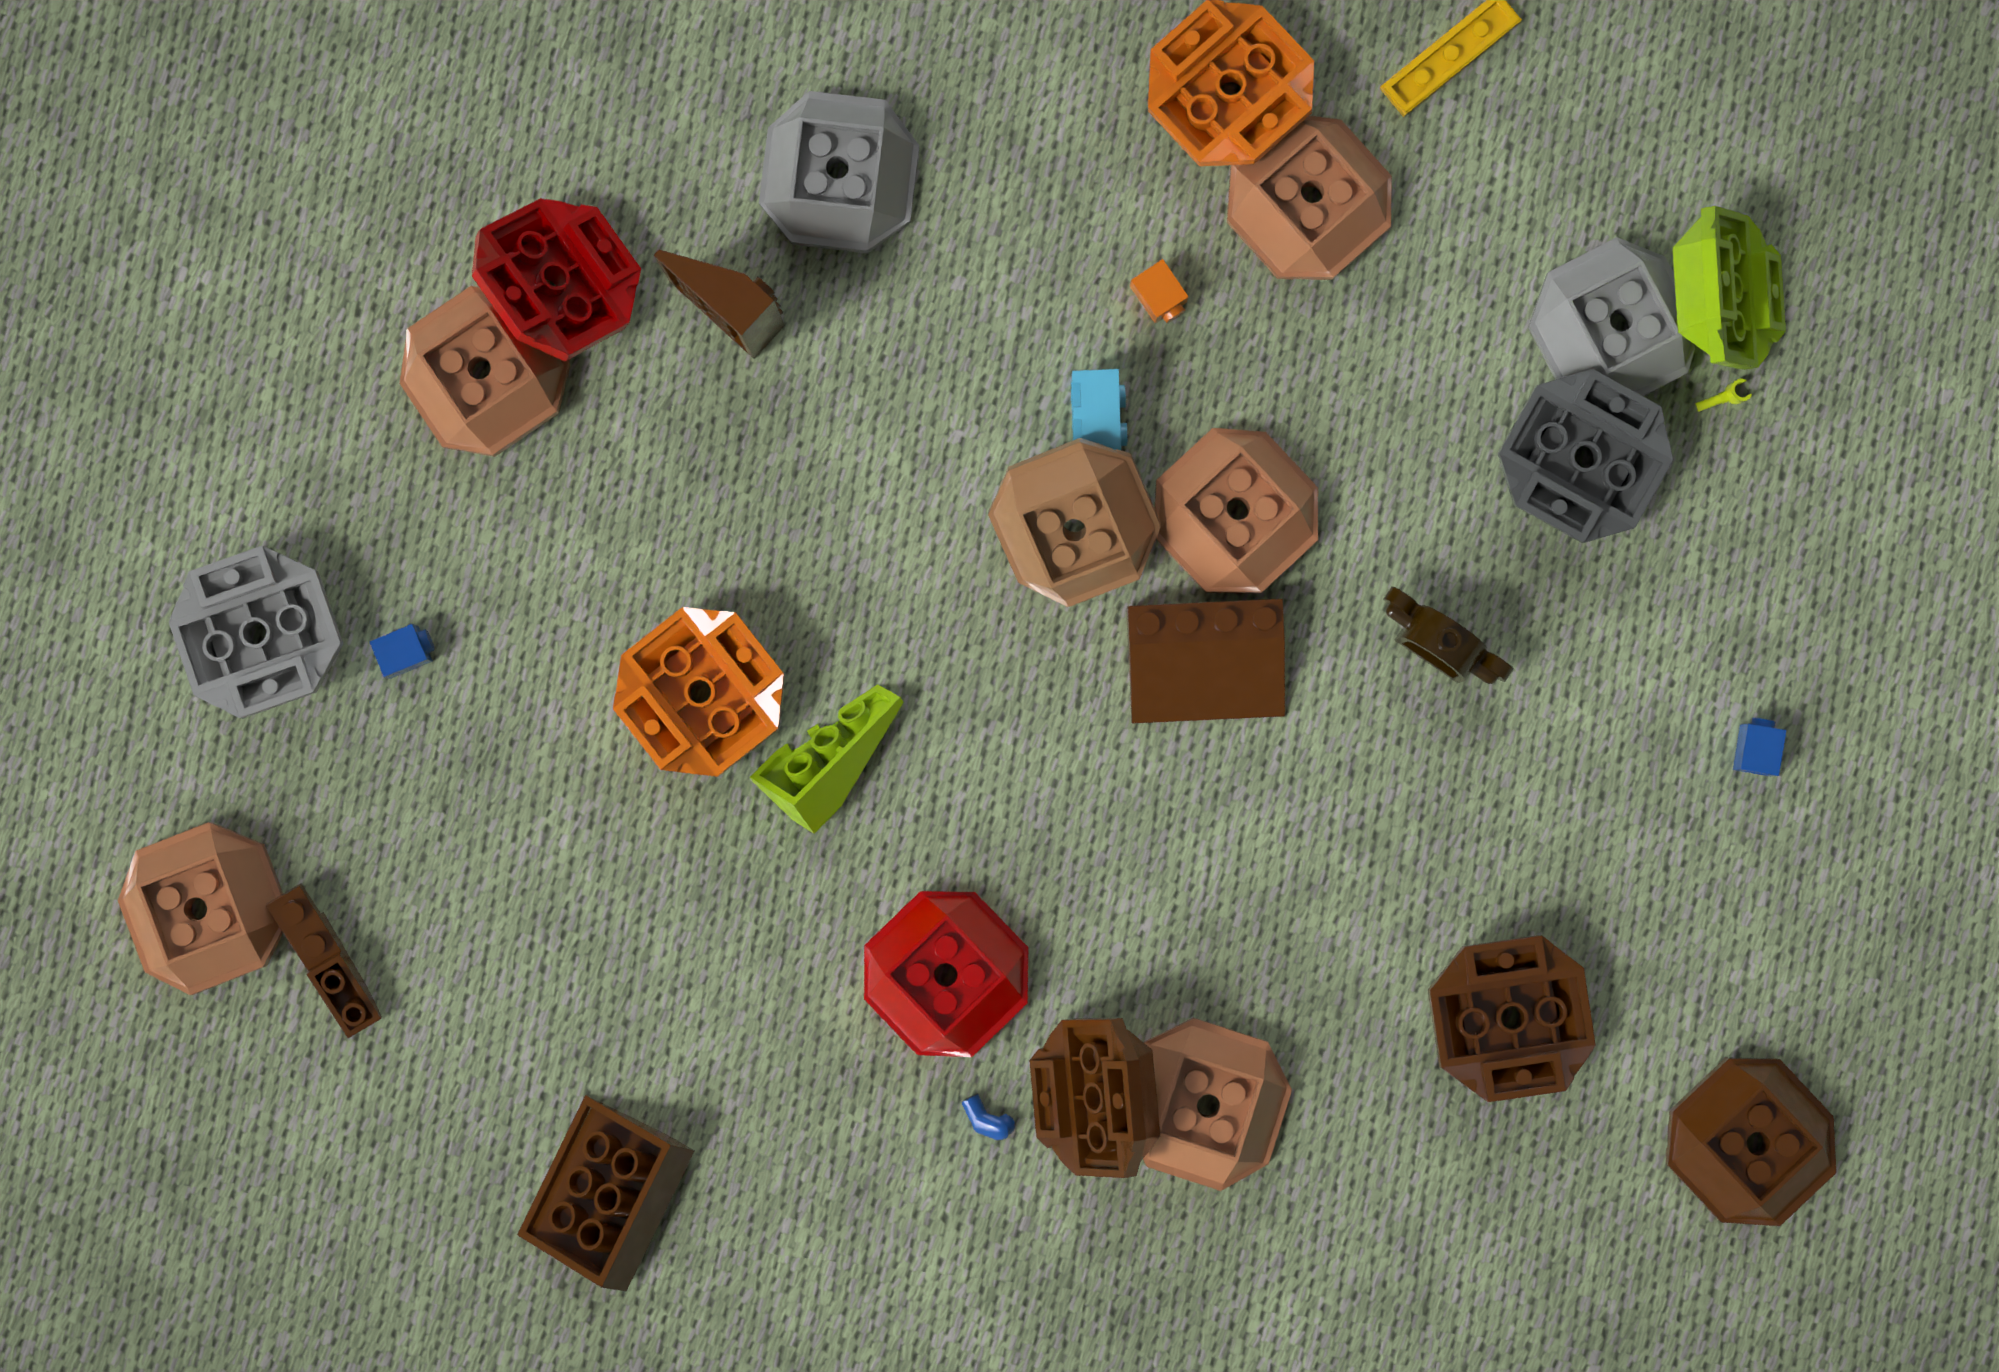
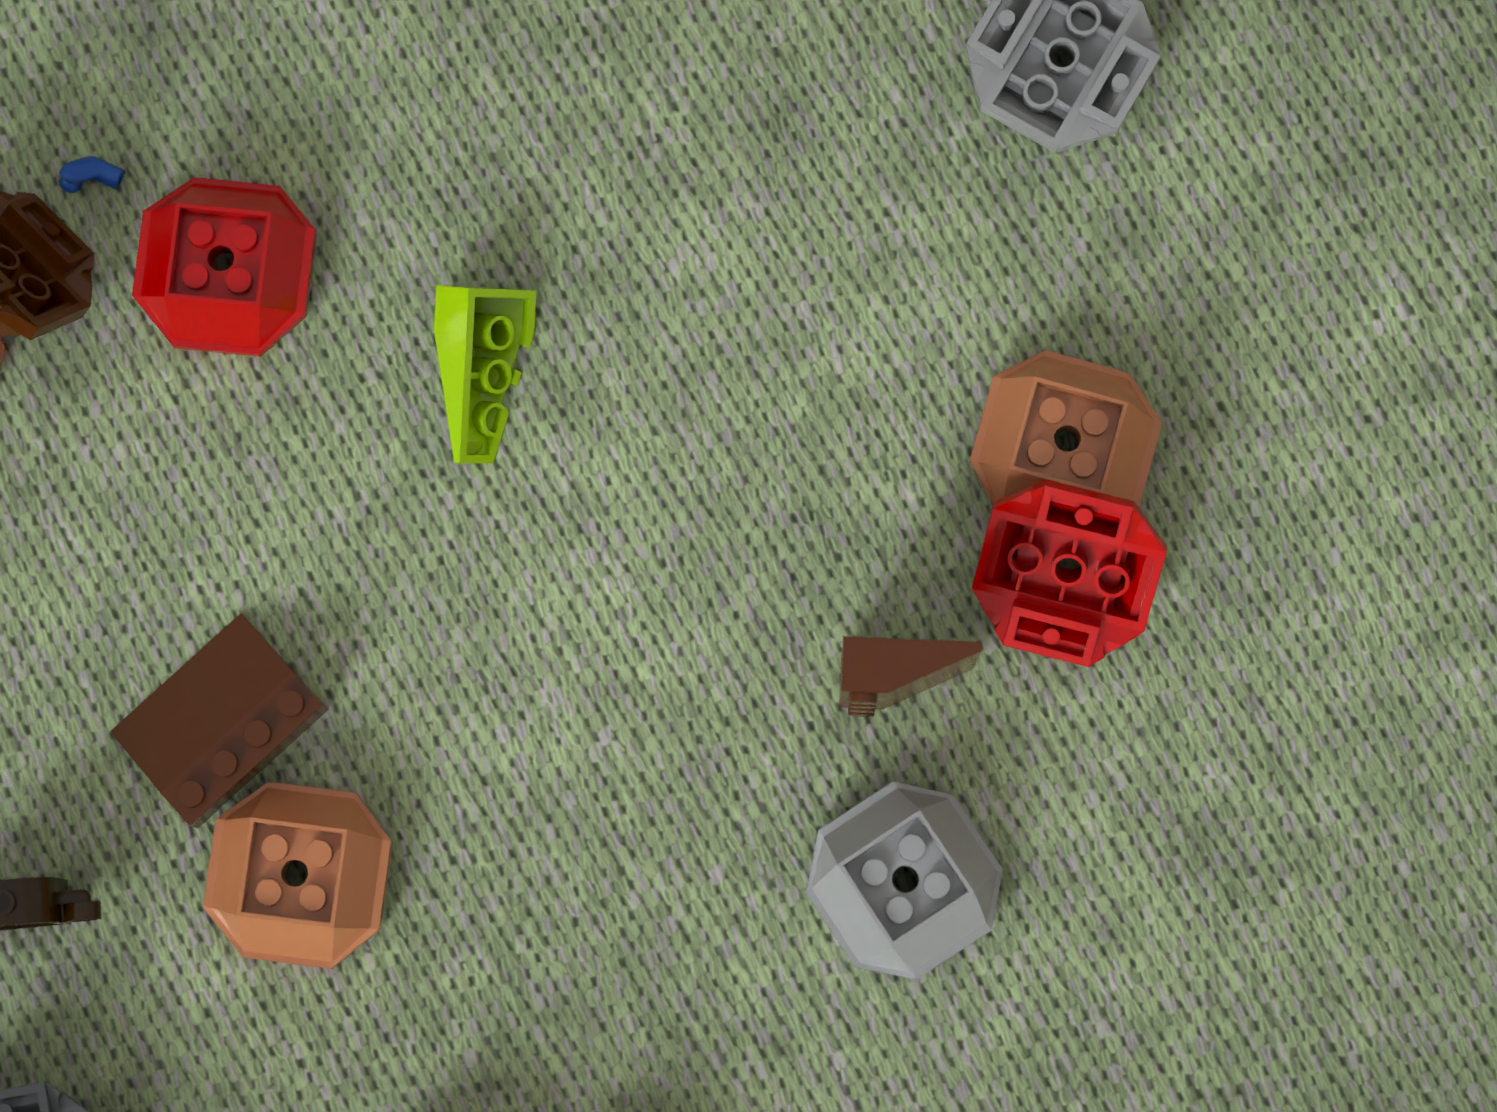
camera: 145 degrees right, 5 degrees down
(402, 650) = (926, 148): blue brick -> none
(658, 681) = (630, 275): orange piece -> none
(1082, 484) = (453, 770): medium nougat piece -> none
(1096, 407) = (476, 839): medium azure wedge -> none
(1160, 292) = (526, 1013): orange brick -> none

